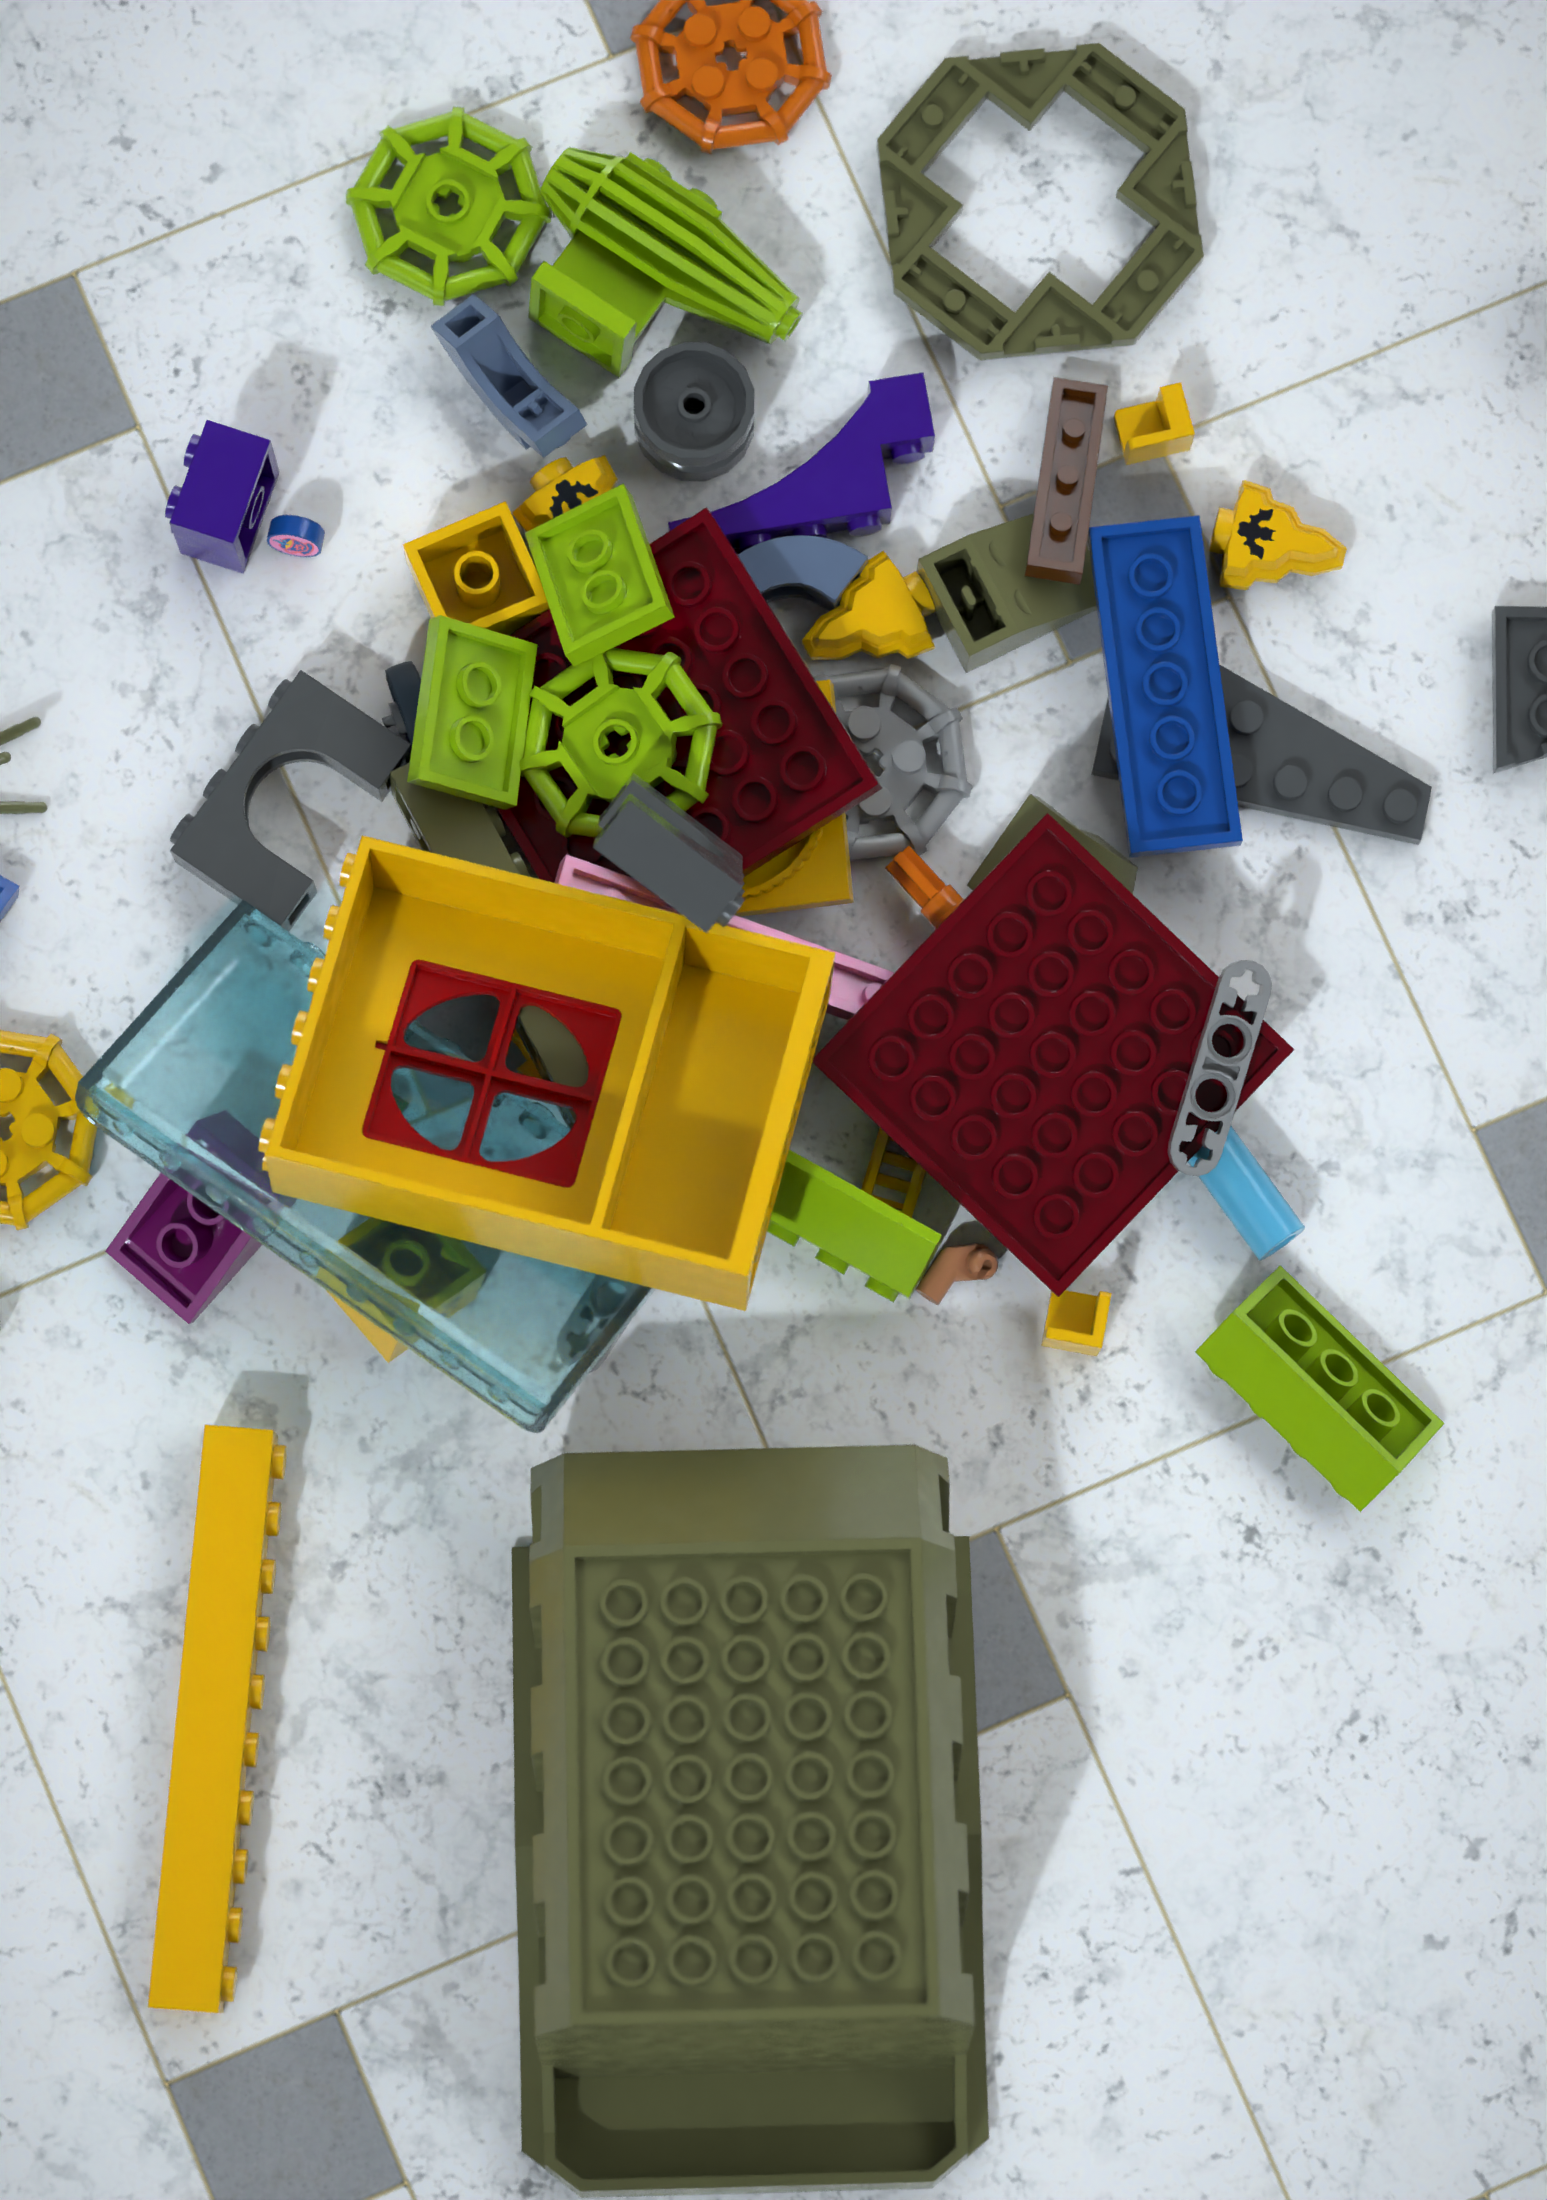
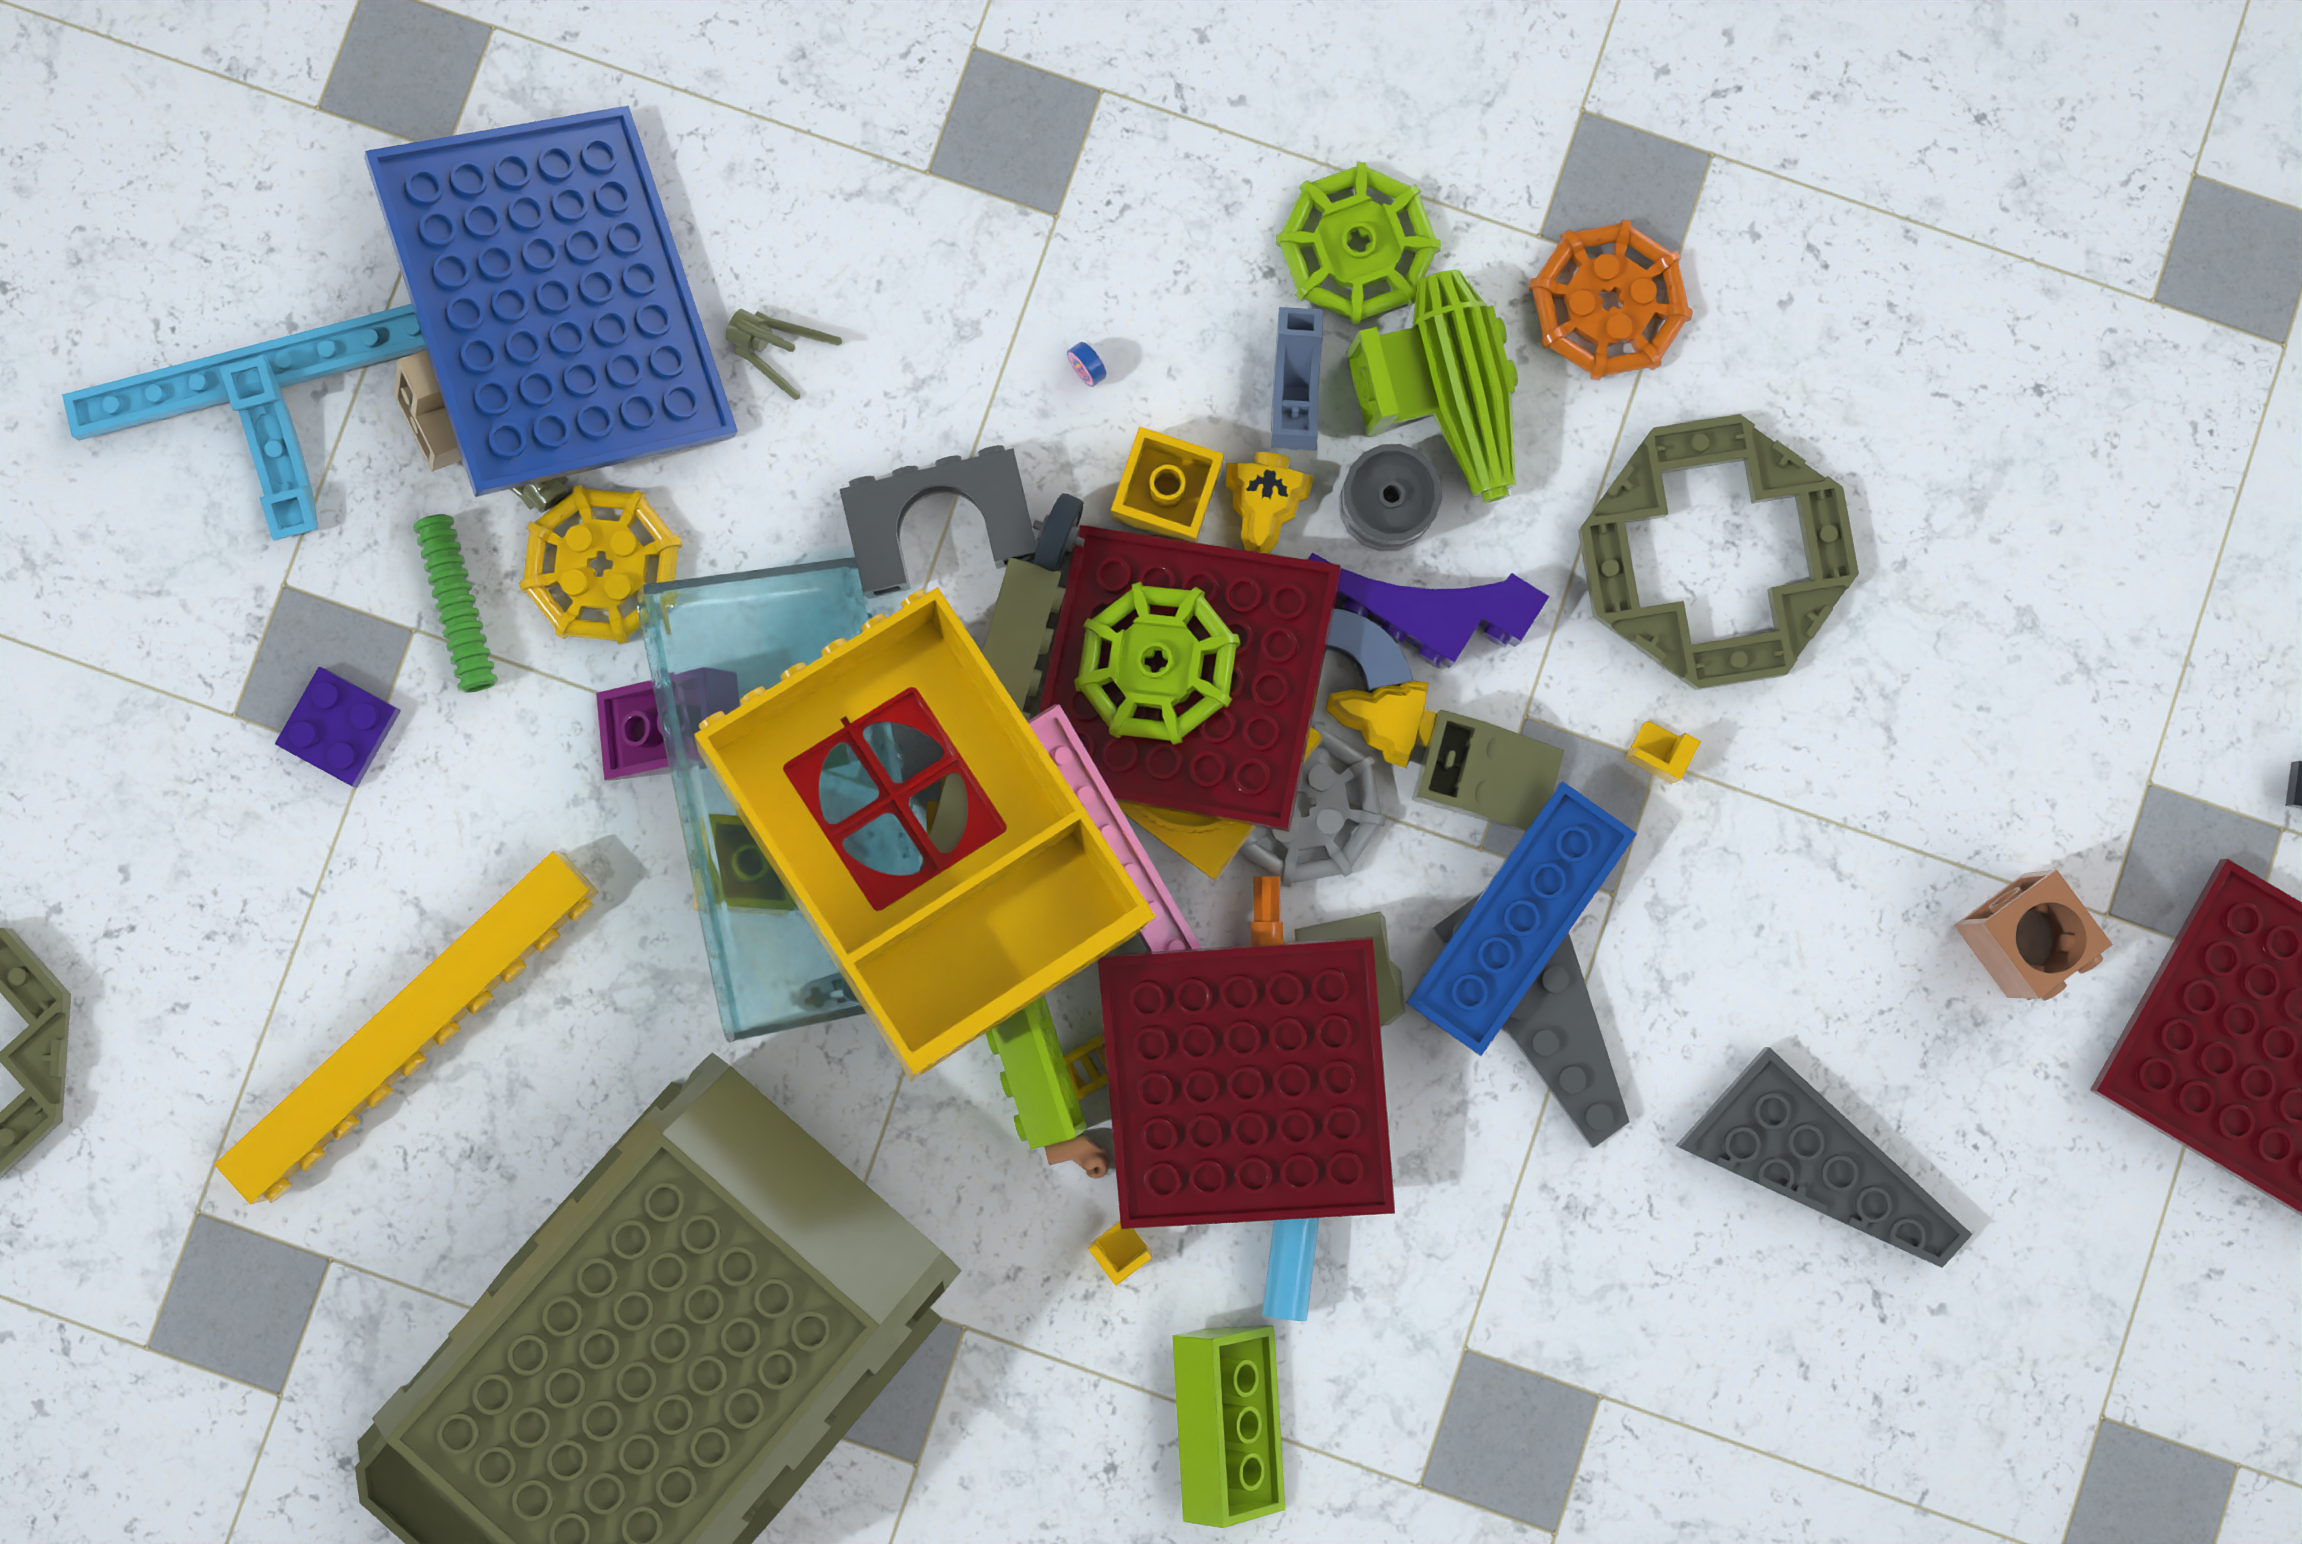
camera: 45 degrees right, 5 degrees up
(222, 495) = (1061, 301): dark purple brick -> none
(472, 712) = (1086, 565): lime plate -> none
(599, 575) = (1237, 549): lime plate -> none
(671, 854) = (1111, 767): dark grey arch -> none
(1066, 481) = (1576, 739): plate -> none
(1228, 1071) = (1341, 1190): light grey beam -> none
(1267, 541) = (1667, 884): yellow rock -> none

